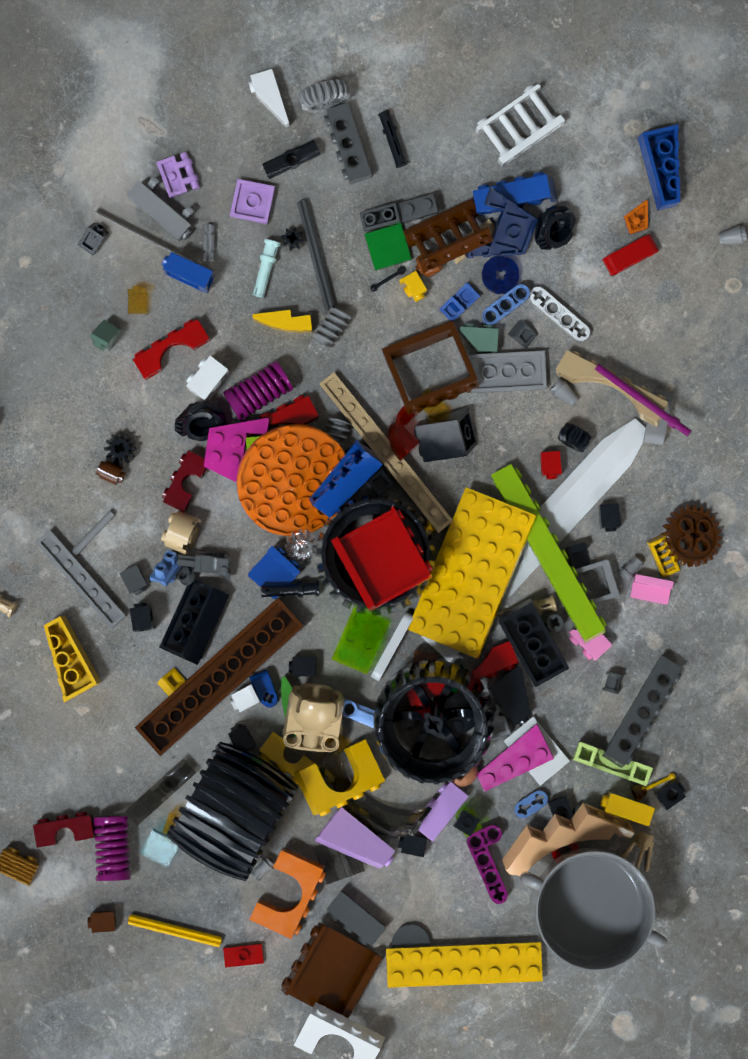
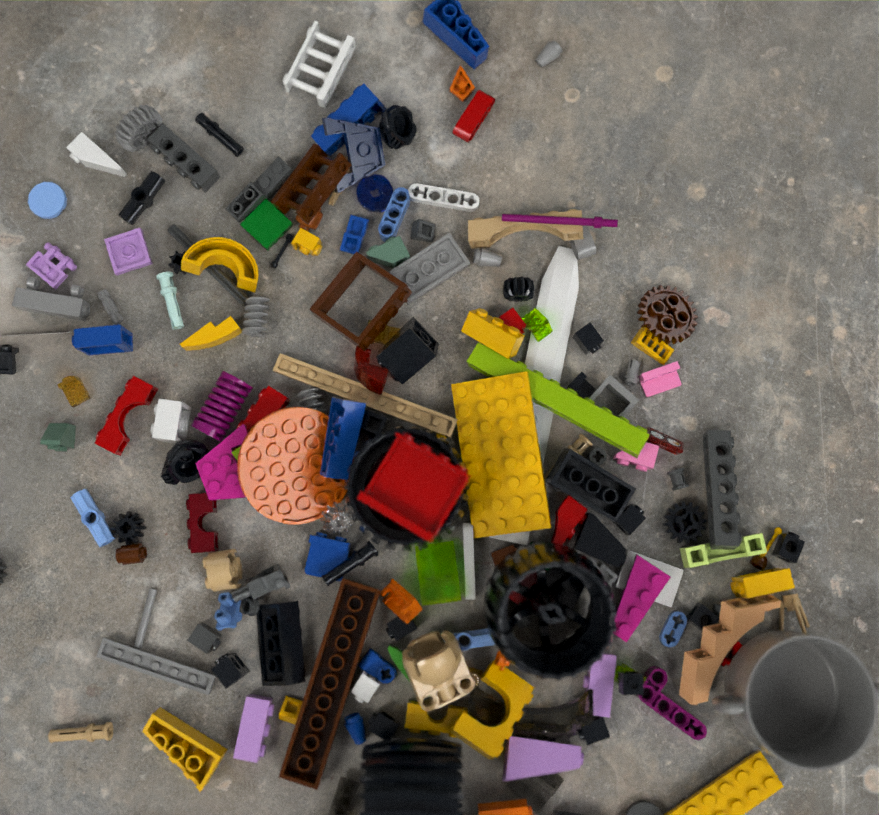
camera: 30 degrees left, 5 degrees down
(94, 409) = (86, 507): none -> light blue piece
(134, 678) = (254, 728): none -> lavender brick
(206, 111) = (47, 200): none -> light blue tile
(217, 727) = (355, 727): none -> blue cone
(315, 645) = (400, 601): none -> orange hinge
(340, 259) = (222, 252): none -> yellow brick
(371, 743) = (501, 661): none -> orange plate
(528, 463) = (493, 333): none -> yellow brick
(550, 691) = (630, 519): none -> black brick
(572, 478) = (537, 324): none -> clear neon green bracket
(589, 715) = (682, 530): none -> black gear
(621, 643) = (664, 441): none -> clear red slope

